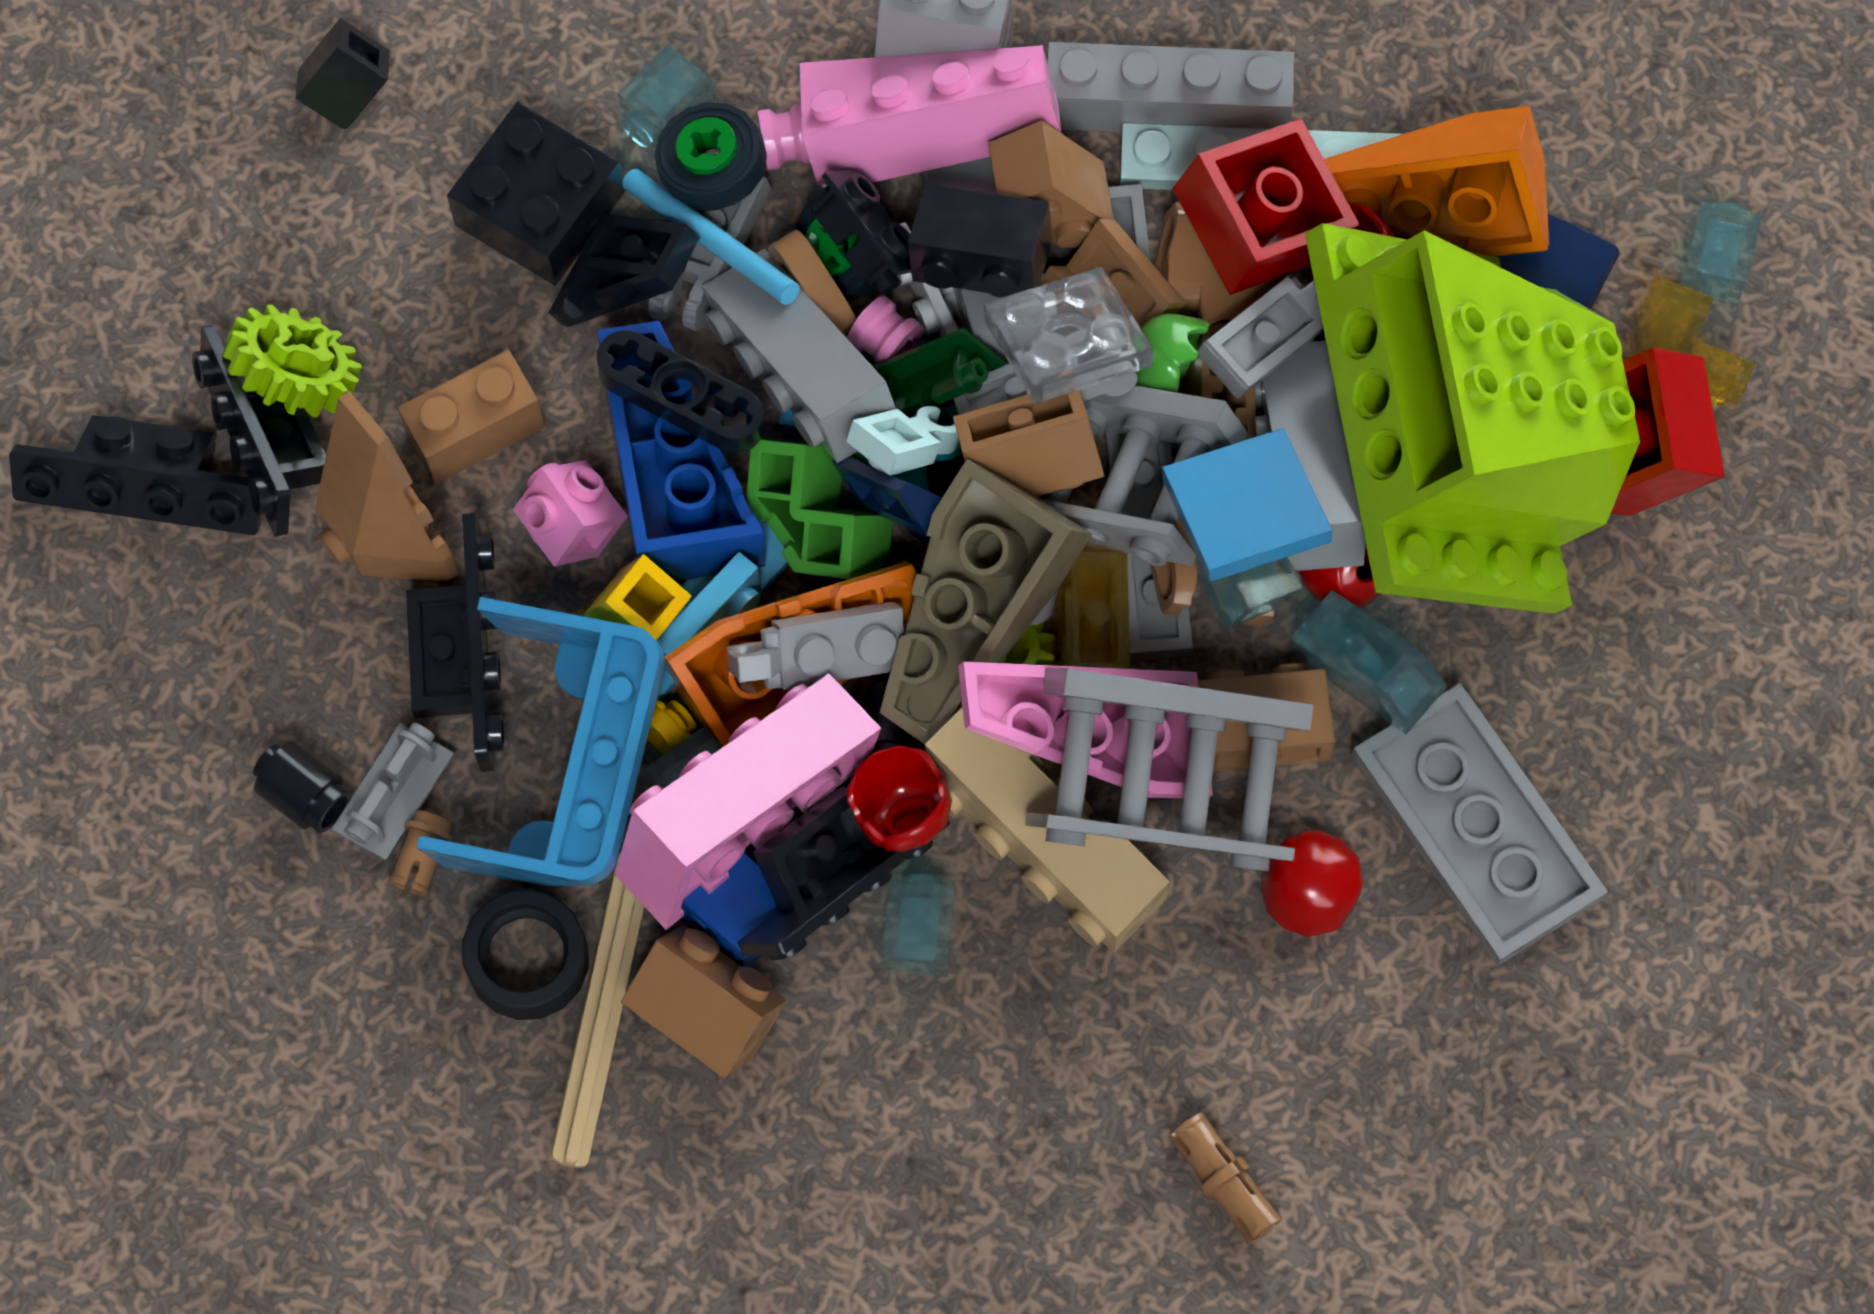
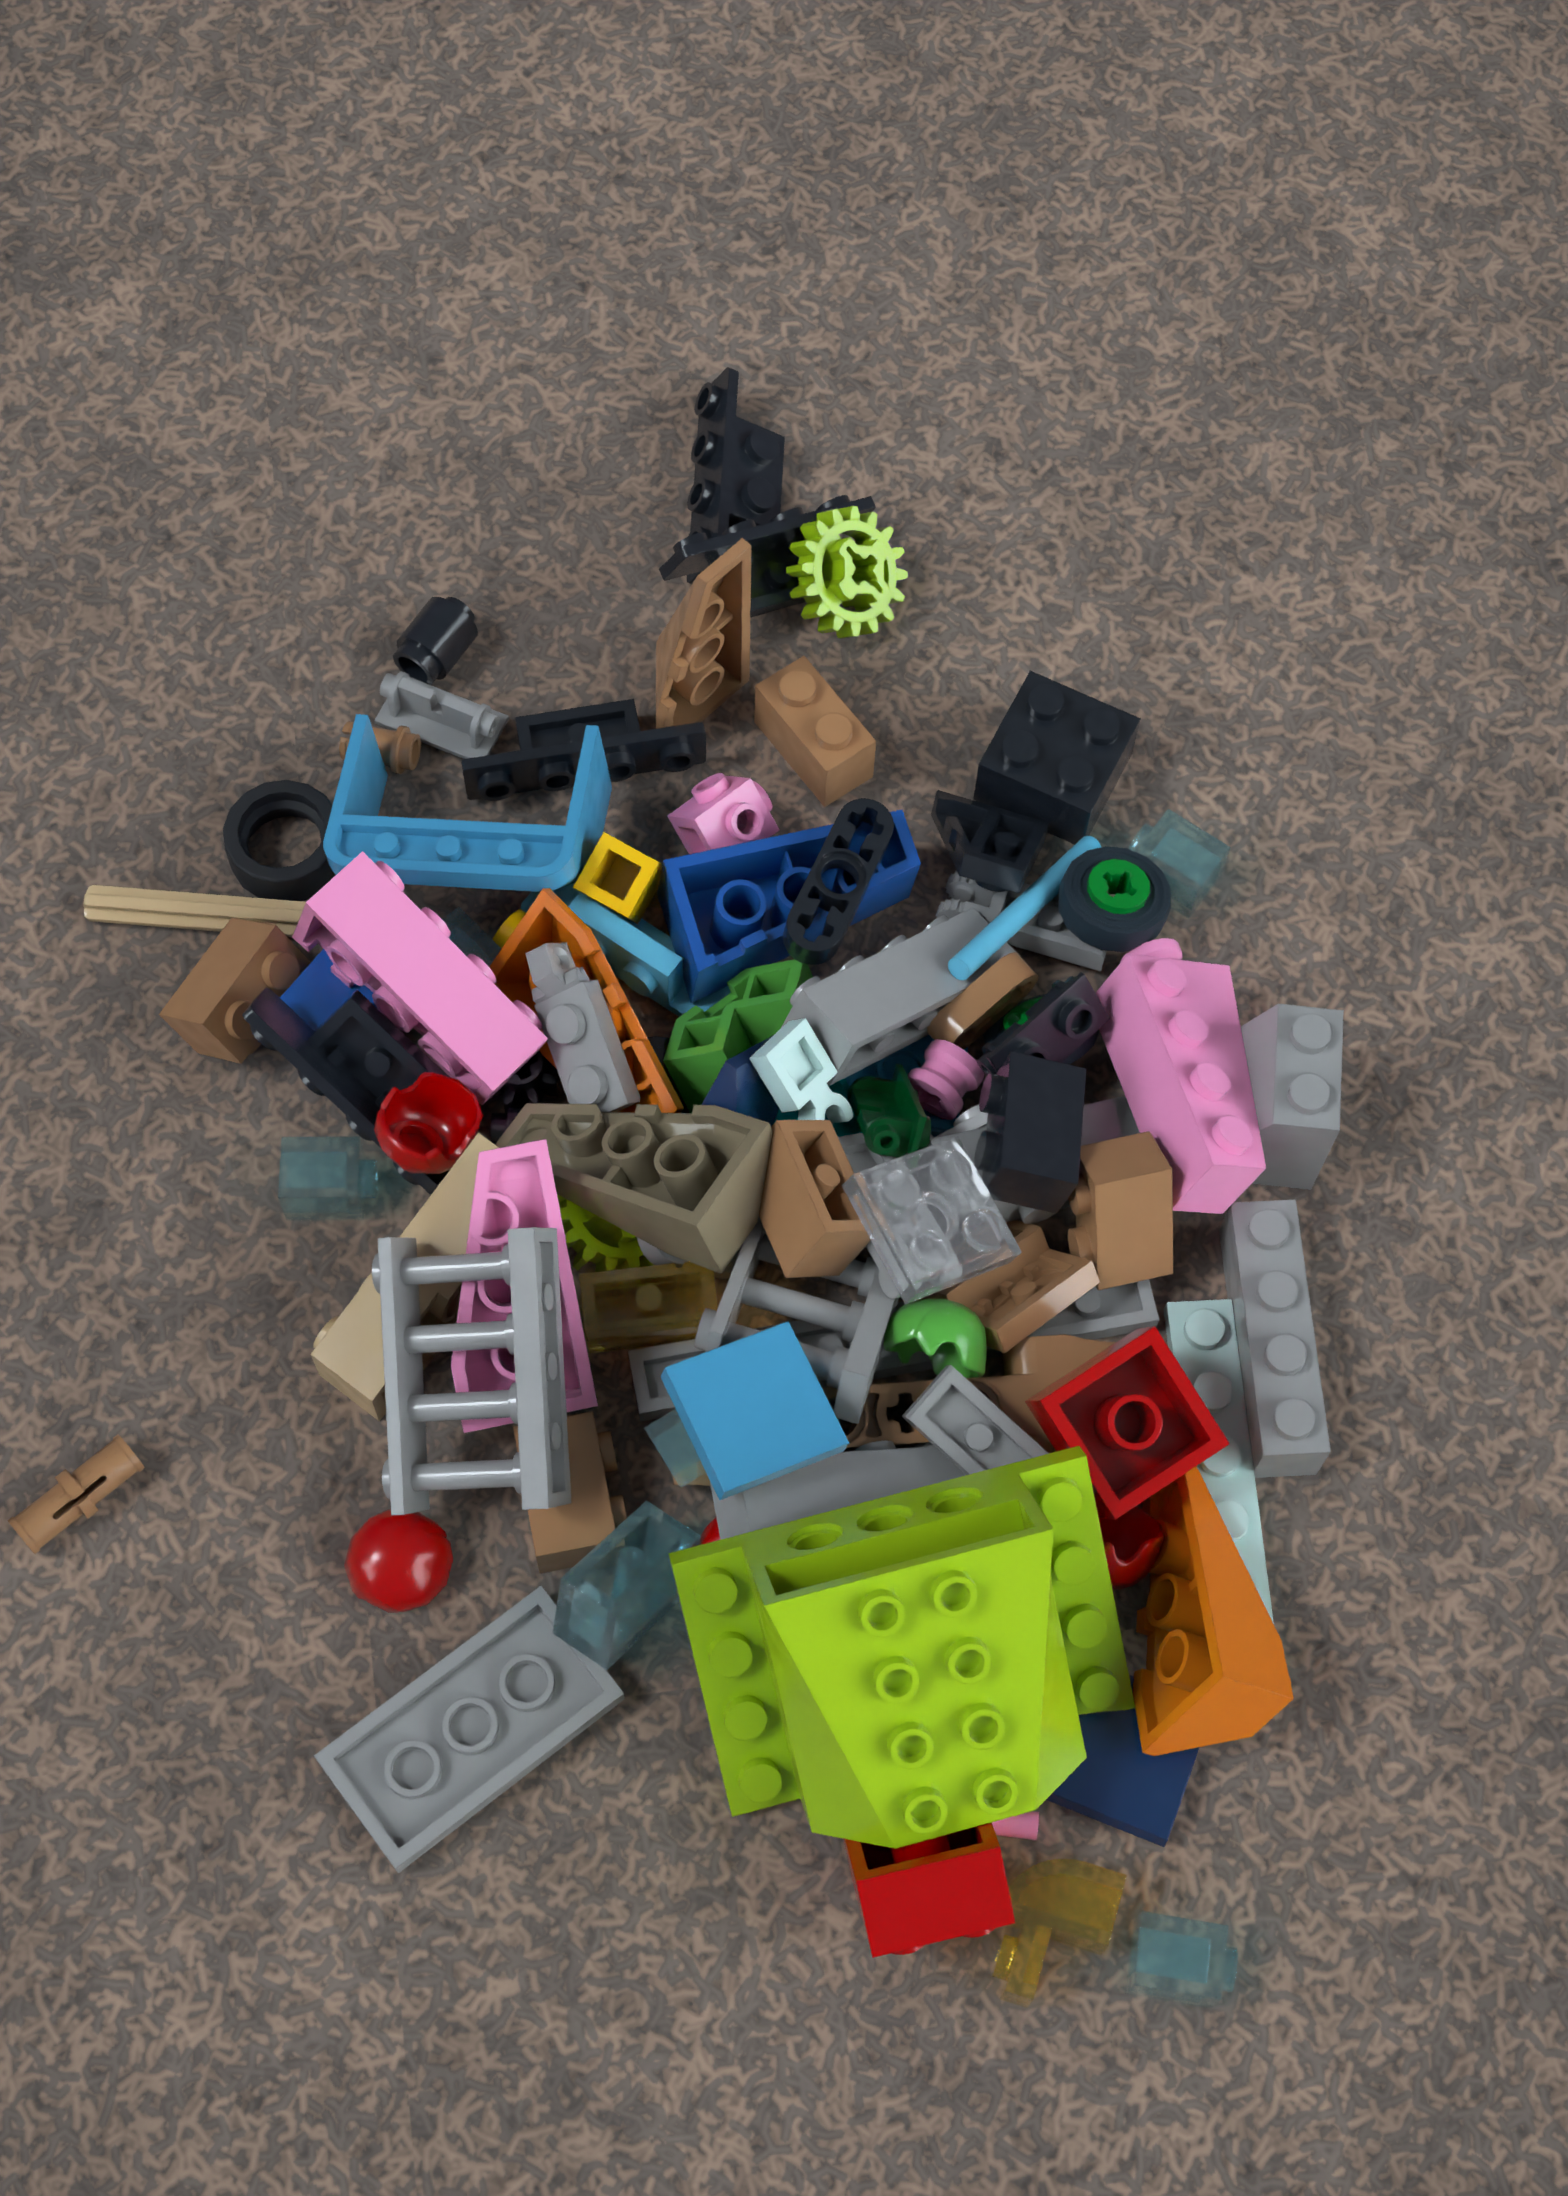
camera: 80 degrees right, 5 degrees down
(342, 74) = (1158, 587): black panel -> none

